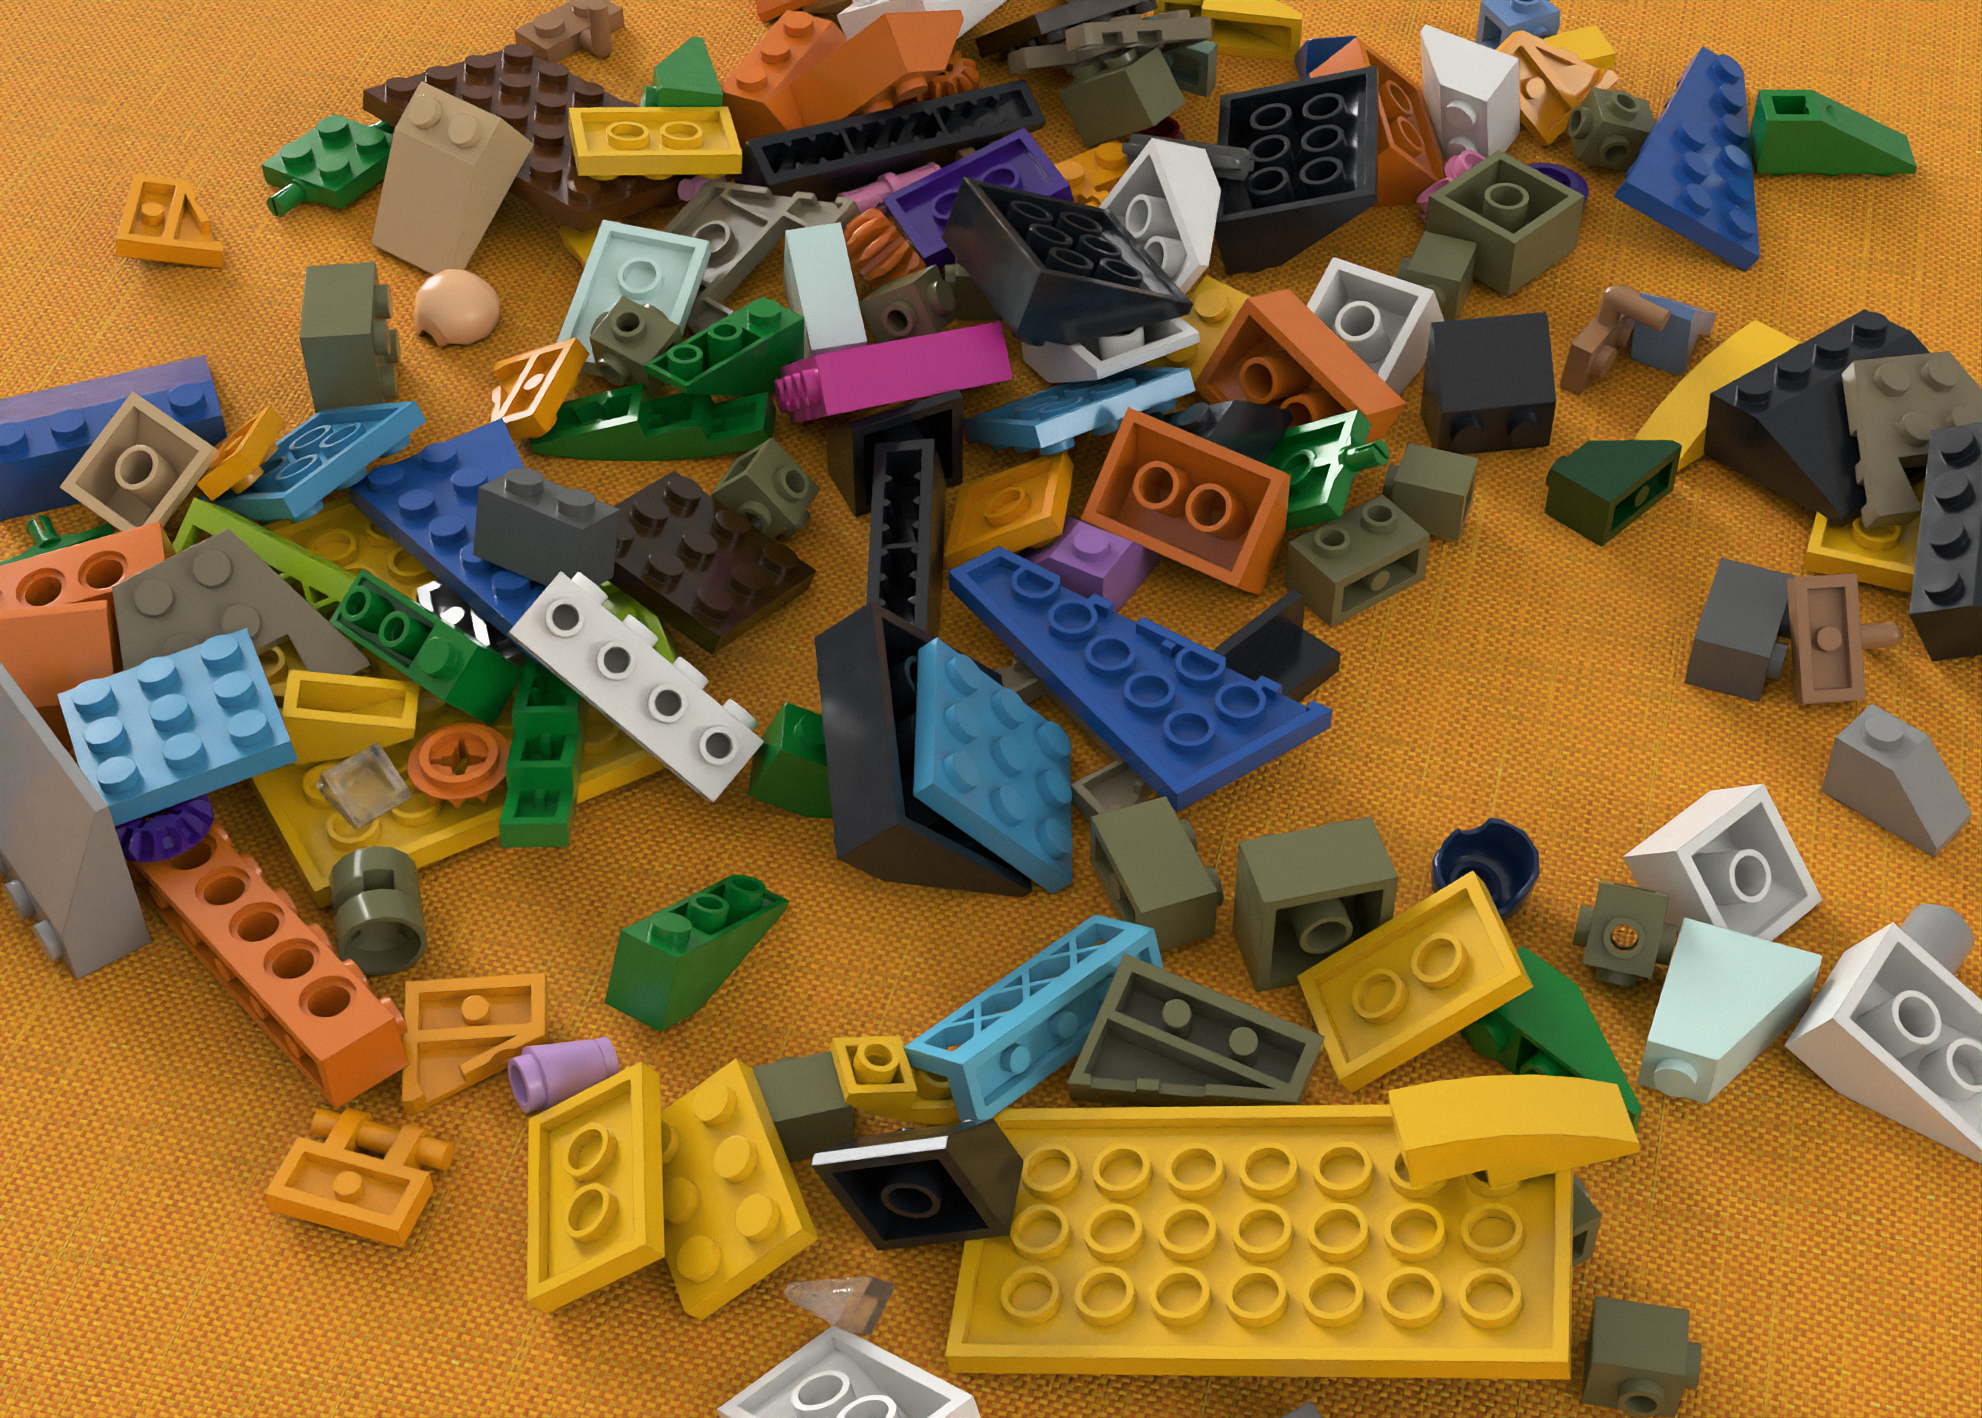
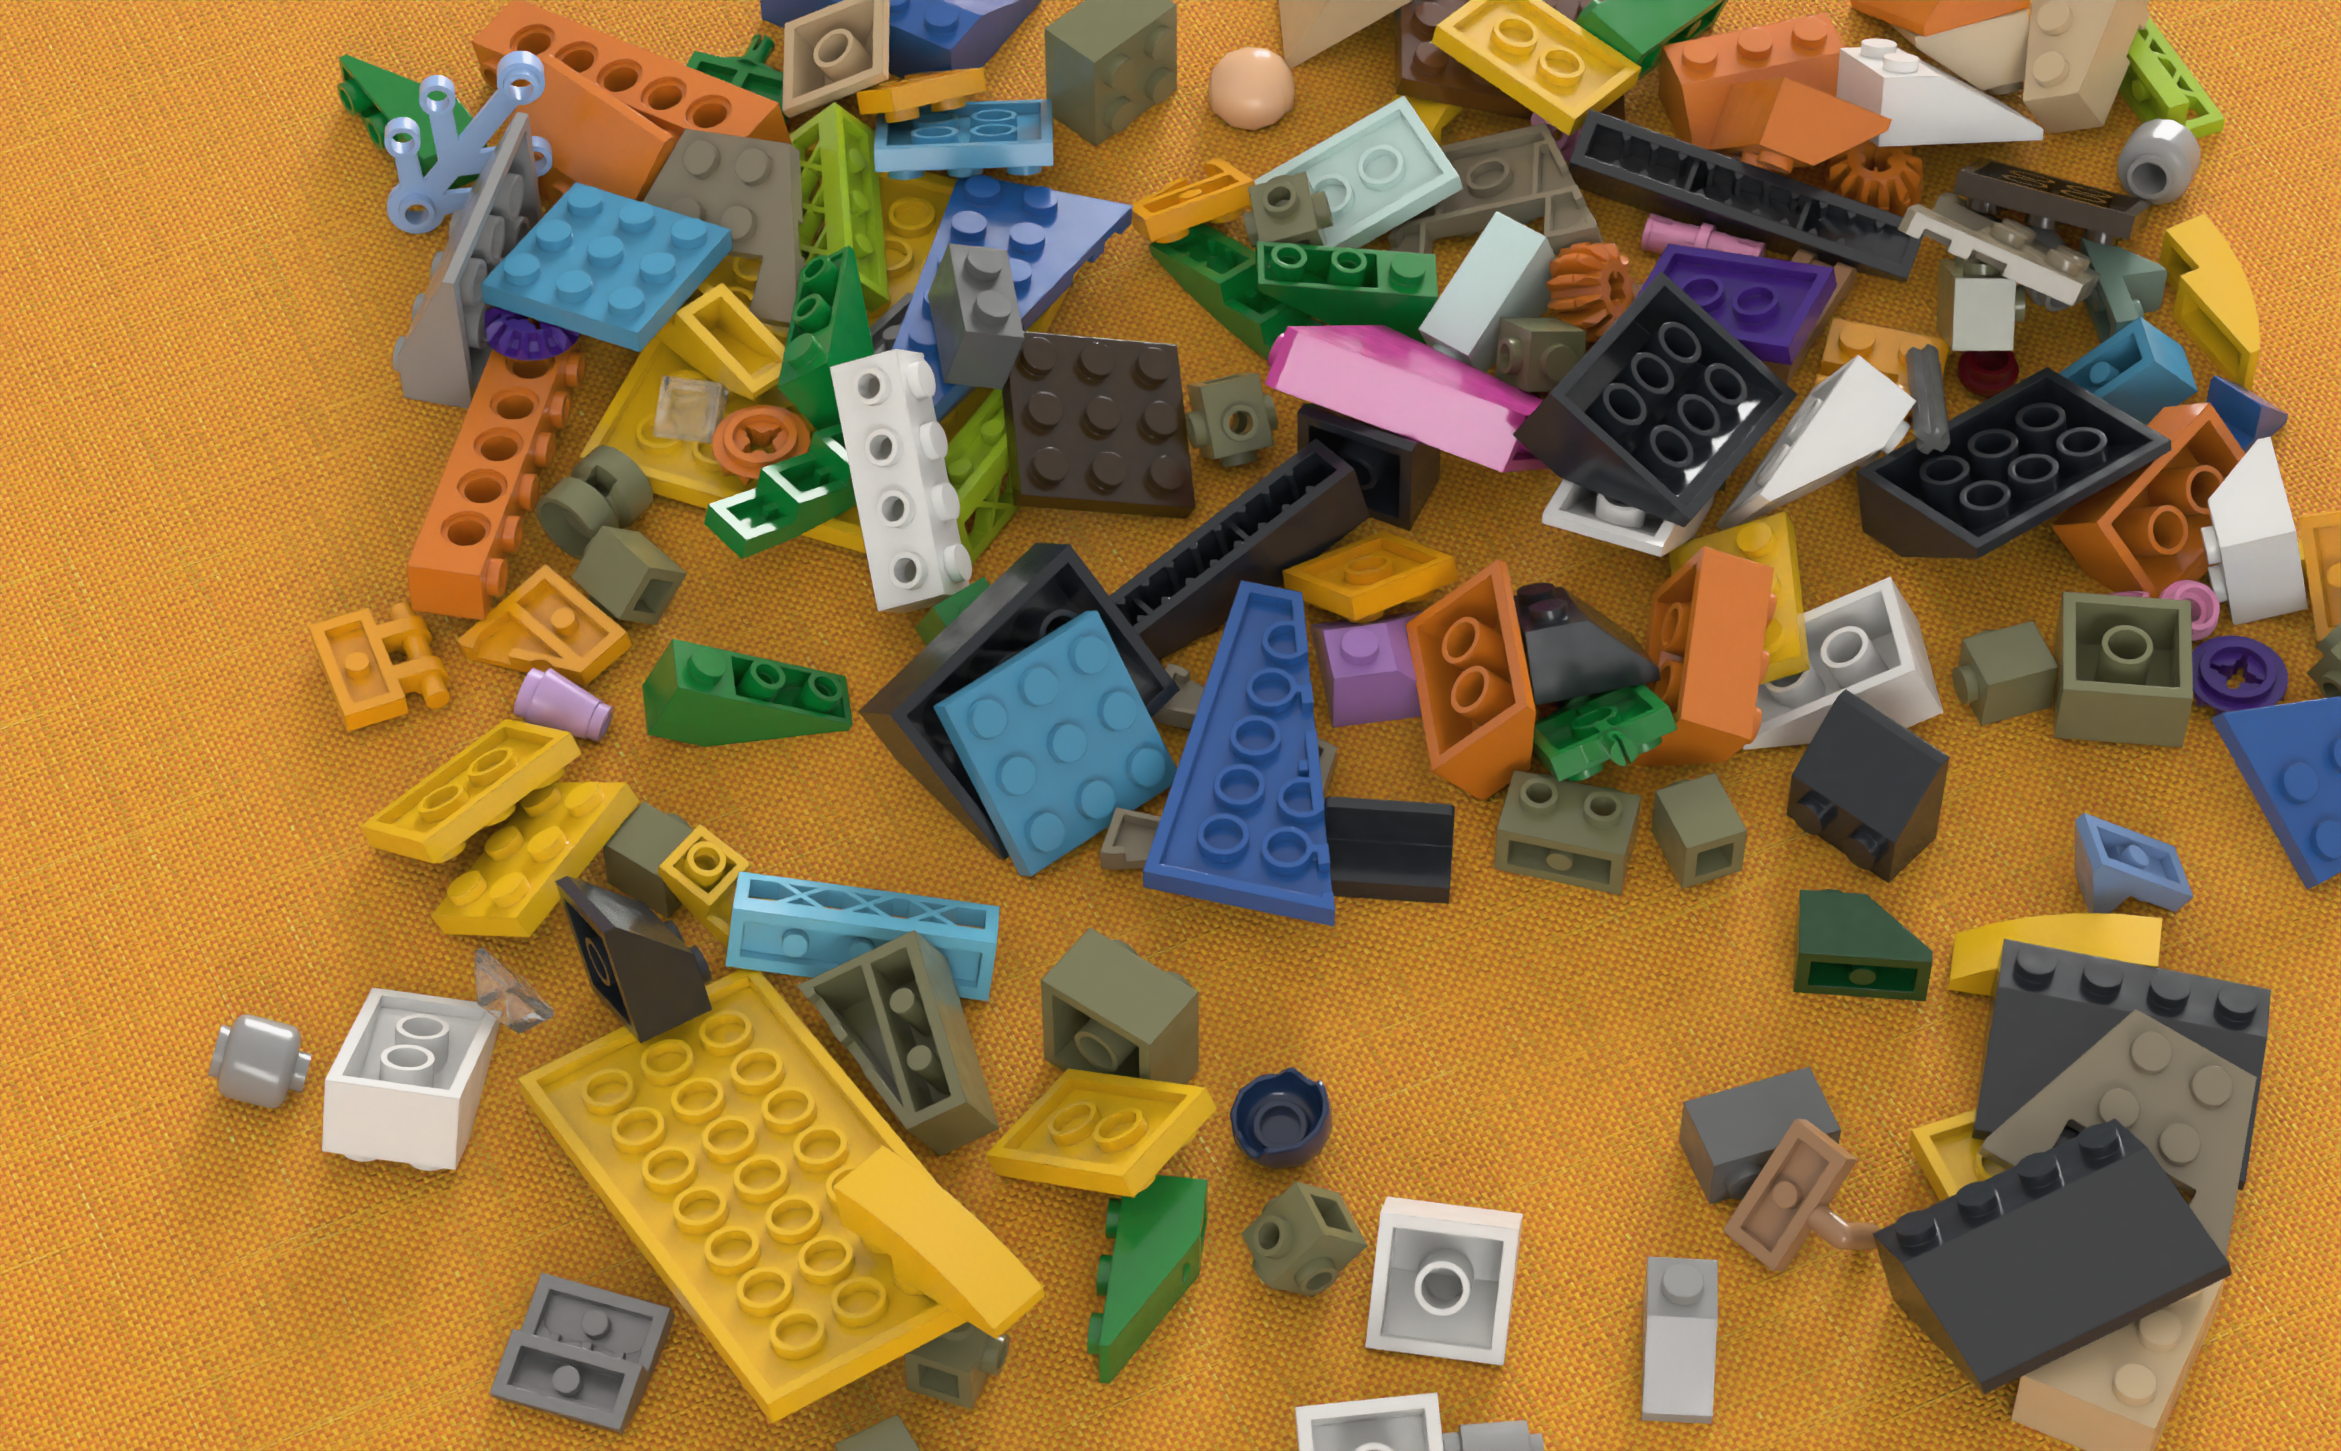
camera: 50 degrees right, 5 degrees up
(481, 935) = (628, 575): none -> olive brick
(1071, 408) = (1509, 527): dark azure plate -> none
(1154, 872) = (1066, 897): olive brick -> none
(1245, 67) = (2136, 371): none -> dark azure slope
(1612, 328) = (2039, 833): medium nougat plate -> none
(1722, 1008) = (1283, 1347): light aqua slope -> none

